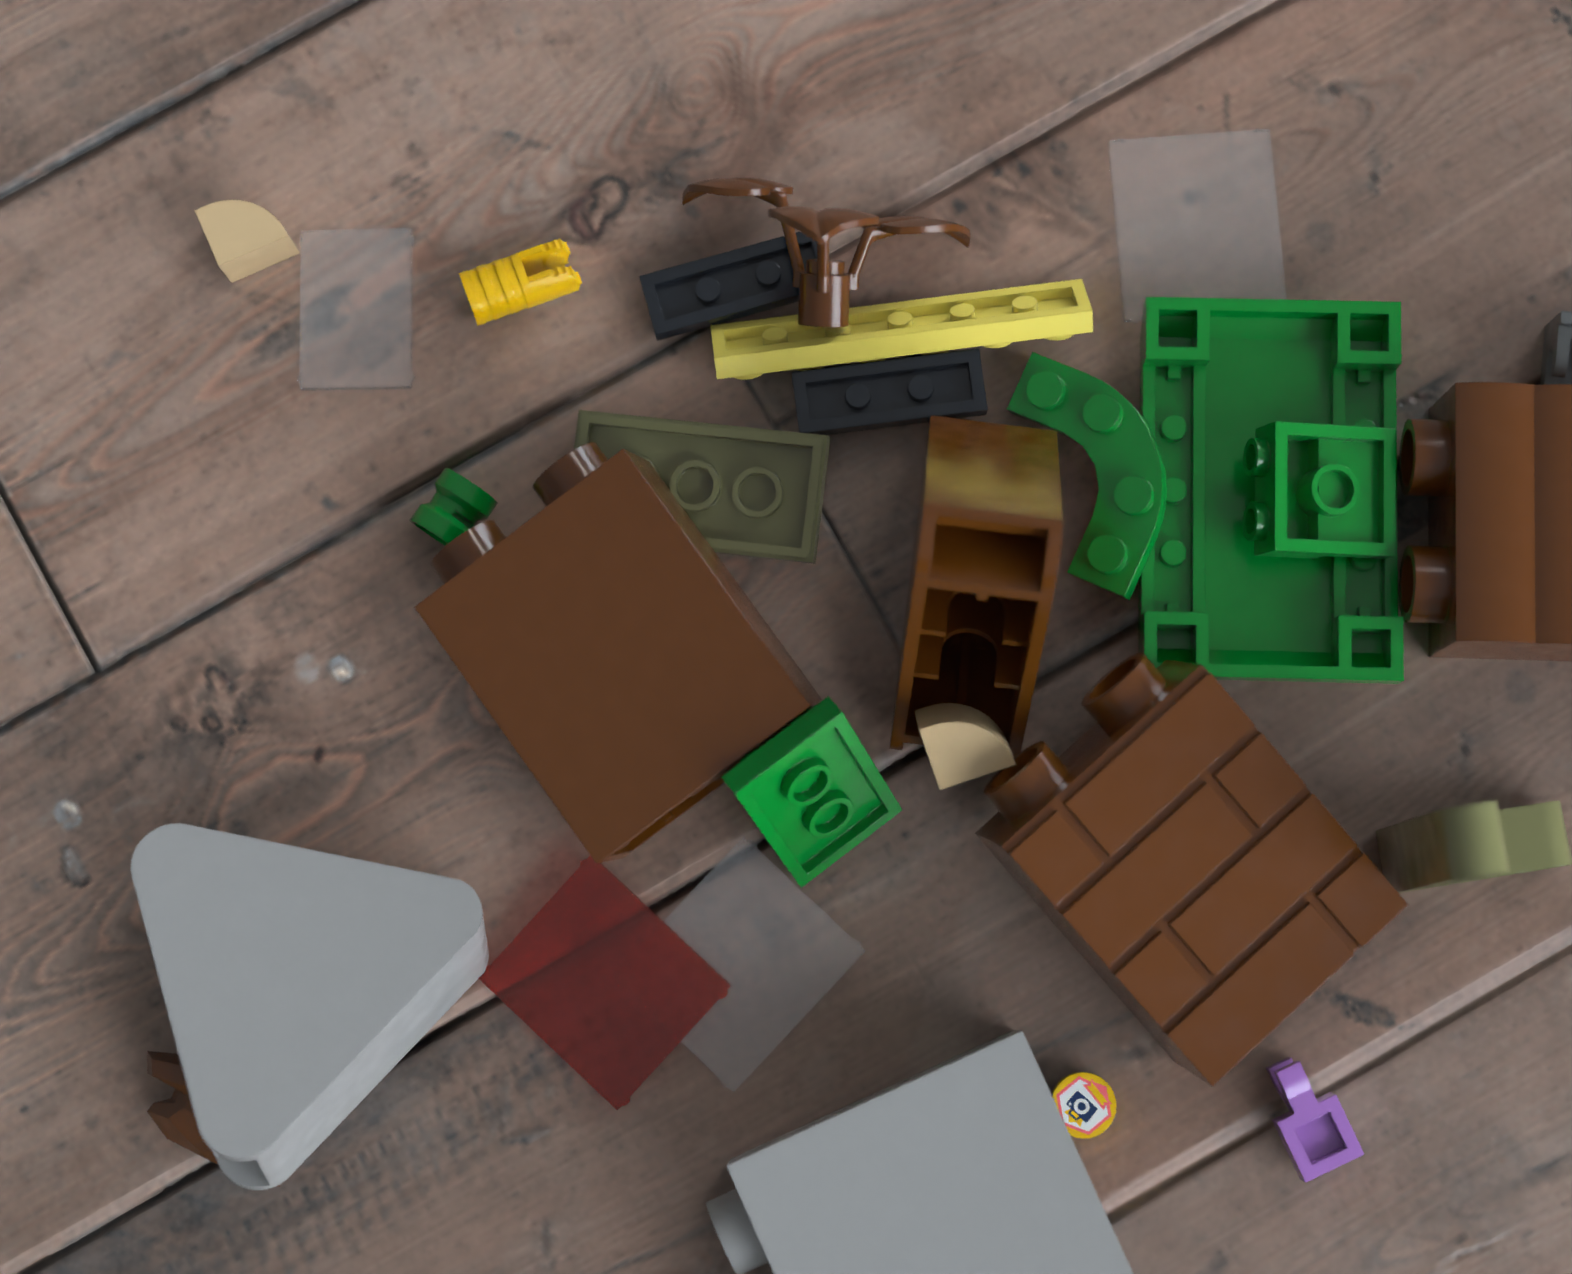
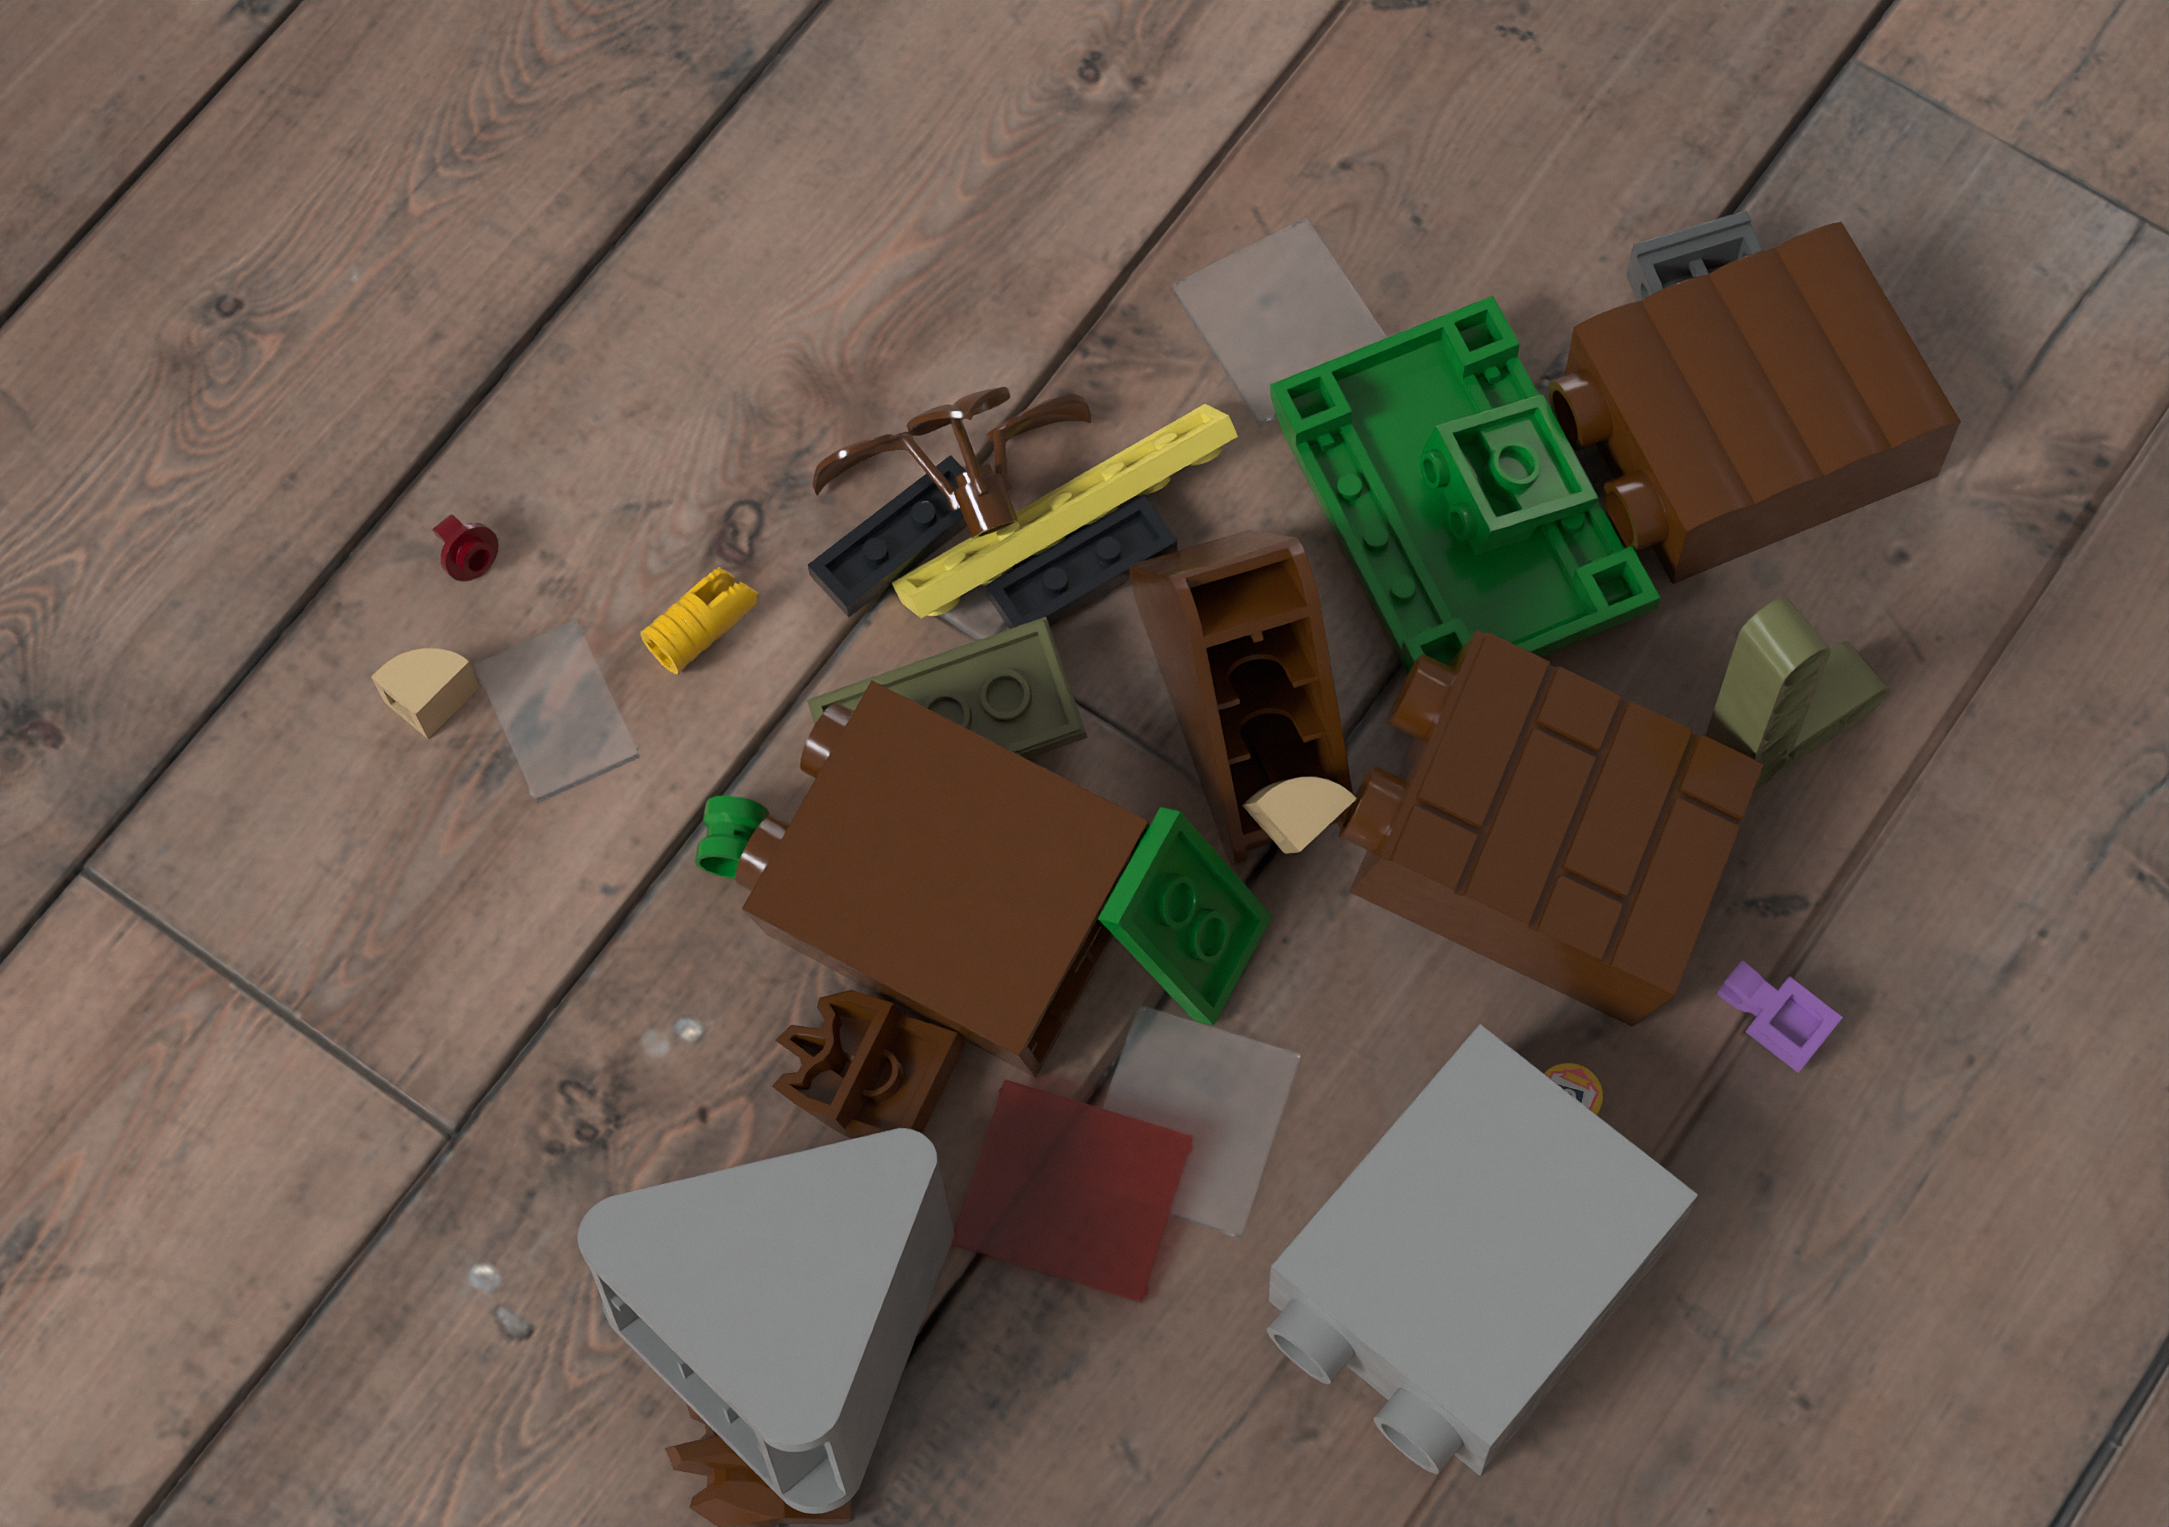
camera: 25 degrees left, 15 degrees down
(338, 117) = (467, 548): none -> dark red plate
(471, 792) = (868, 1066): none -> reddish brown plate
(1126, 465) = (1327, 528): green plate -> none

